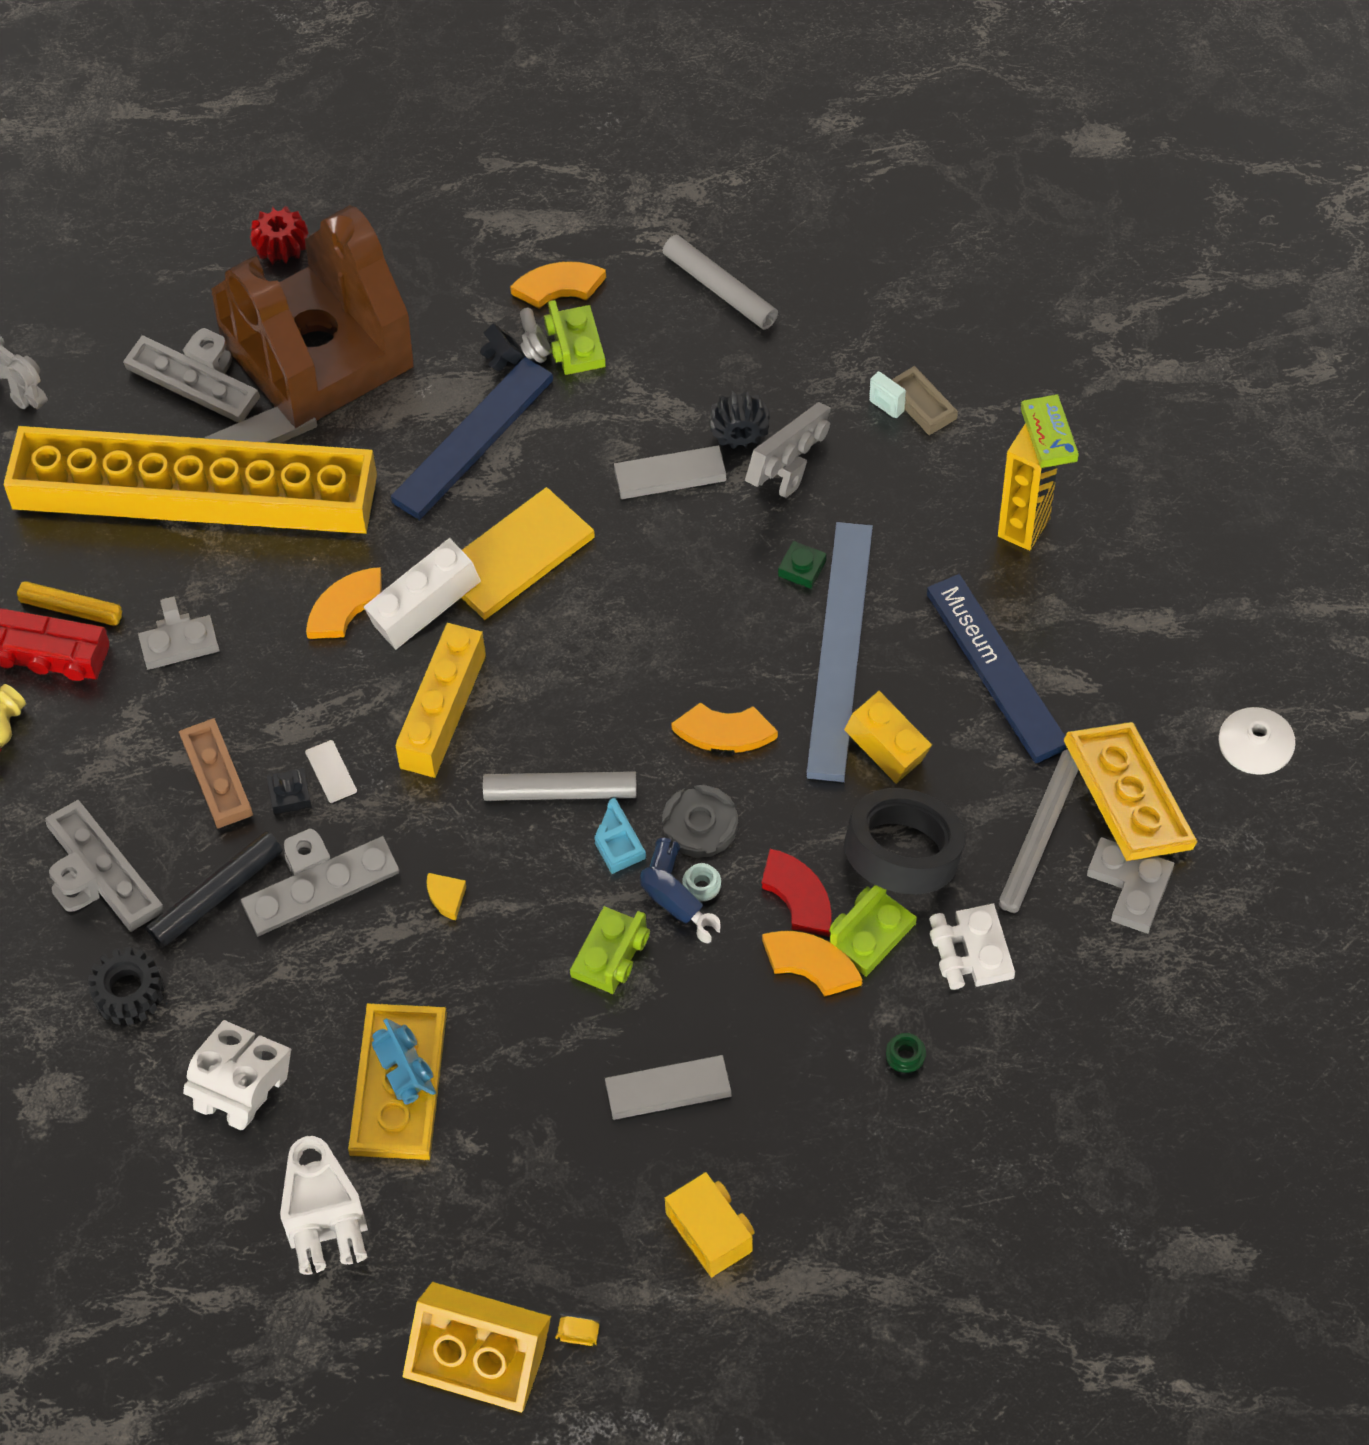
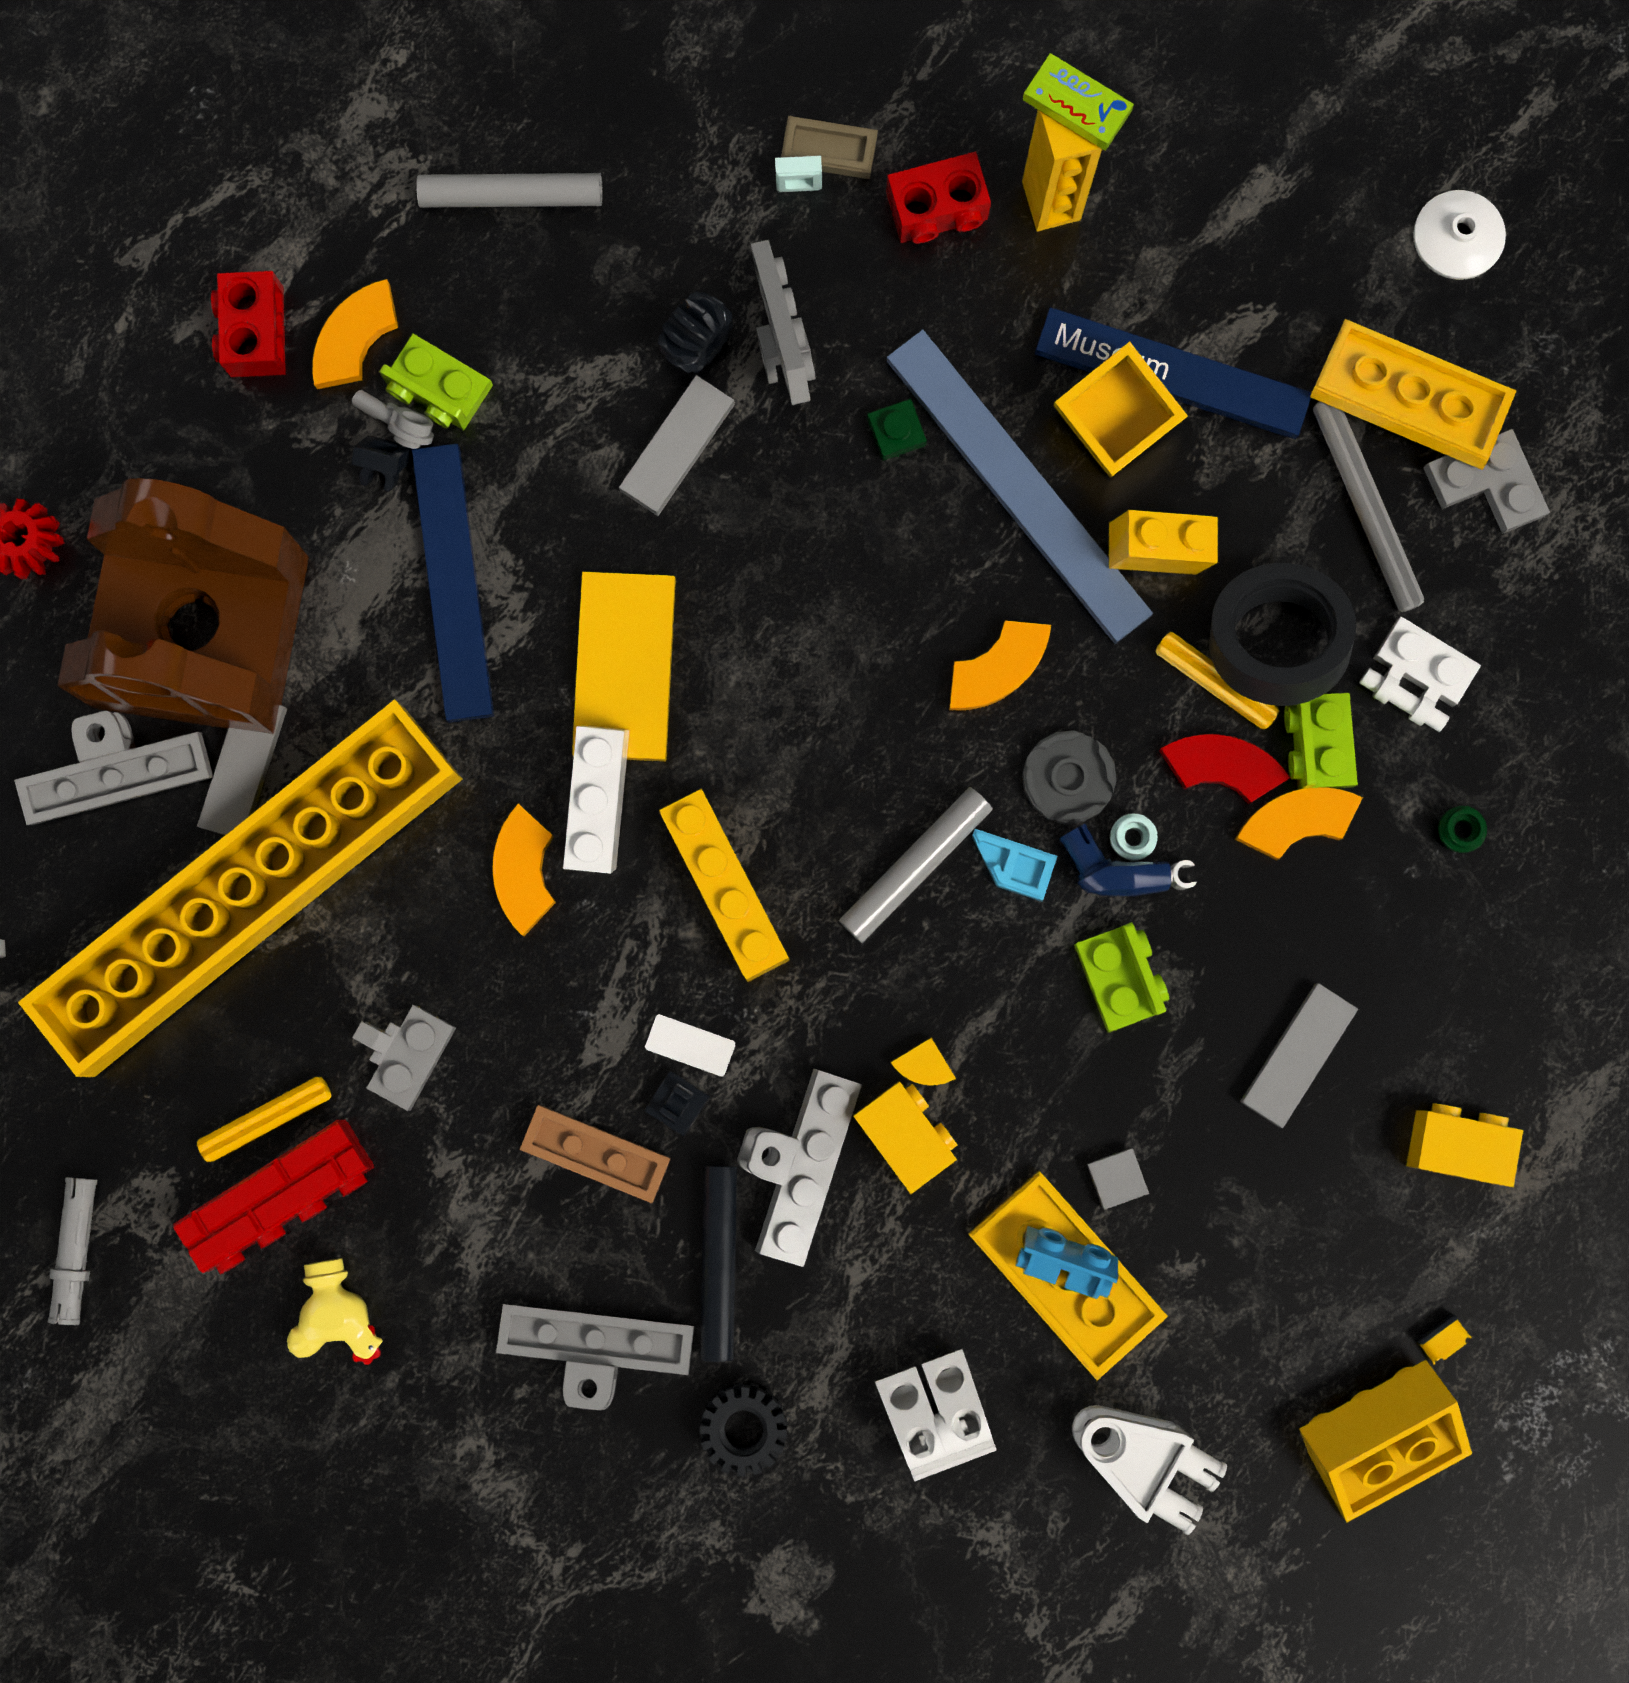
camera: 45 degrees left, 25 degrees up
(391, 915) = (906, 1136): none -> yellow brick
(485, 1055) = (1117, 1178): none -> light grey tile
(510, 233) = (259, 322): none -> red brick
(839, 820) = (1202, 671): none -> yellow axle
(935, 646) = (1120, 409): none -> yellow piece
(956, 463) = (933, 187): none -> red brick

